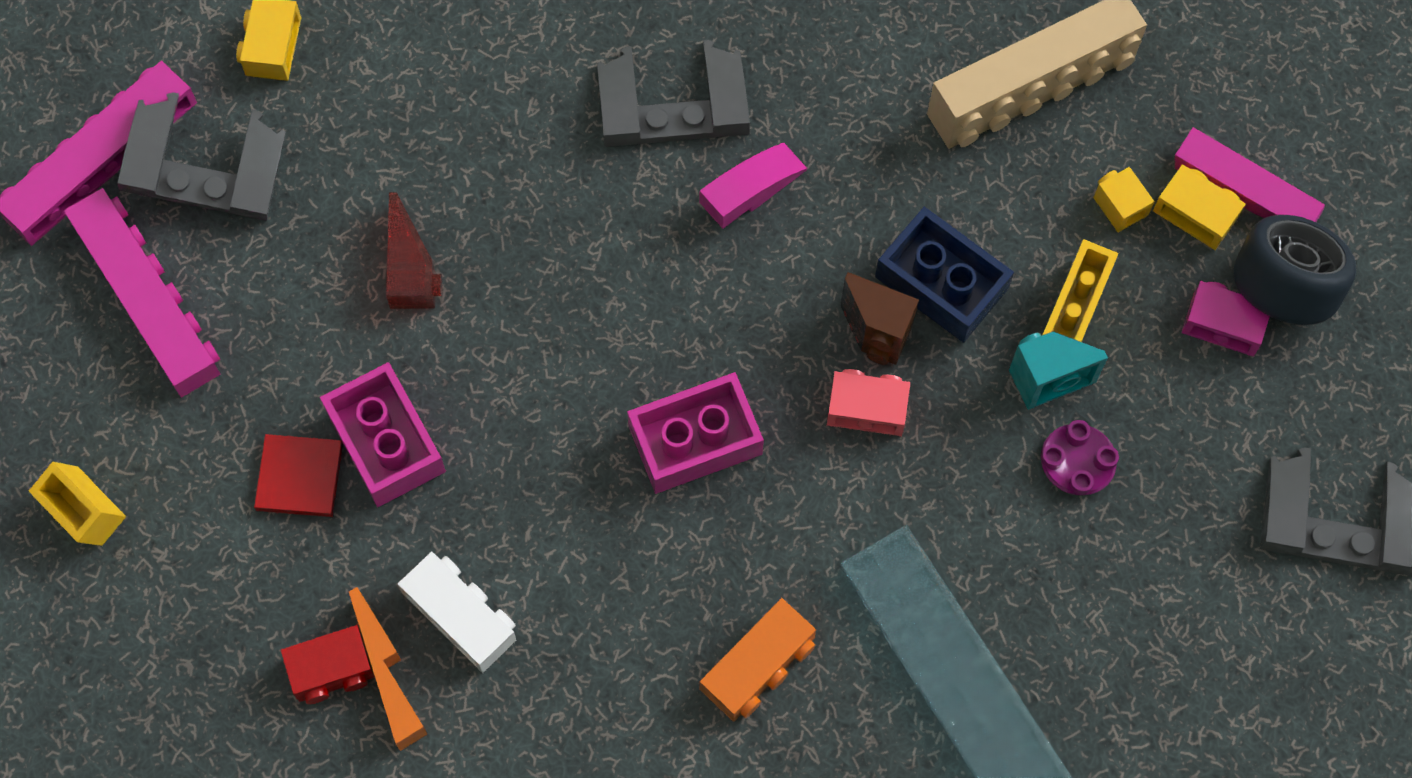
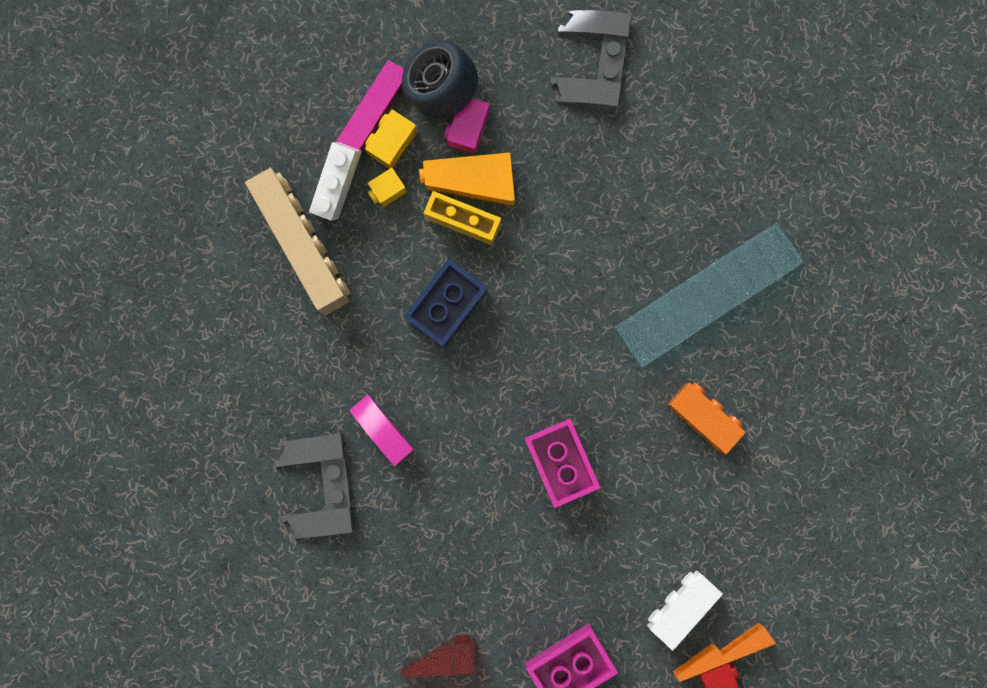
camera: 85 degrees left, 15 degrees up
(868, 402) = (534, 351): coral brick -> none
(878, 317) = (481, 345): reddish brown slope -> none
(1054, 367) = (510, 235): teal slope -> none
(1079, 459) = (564, 219): magenta dish -> none
(1131, 122) = (335, 181): none -> white brick
(1143, 329) = (472, 177): none -> light orange slope

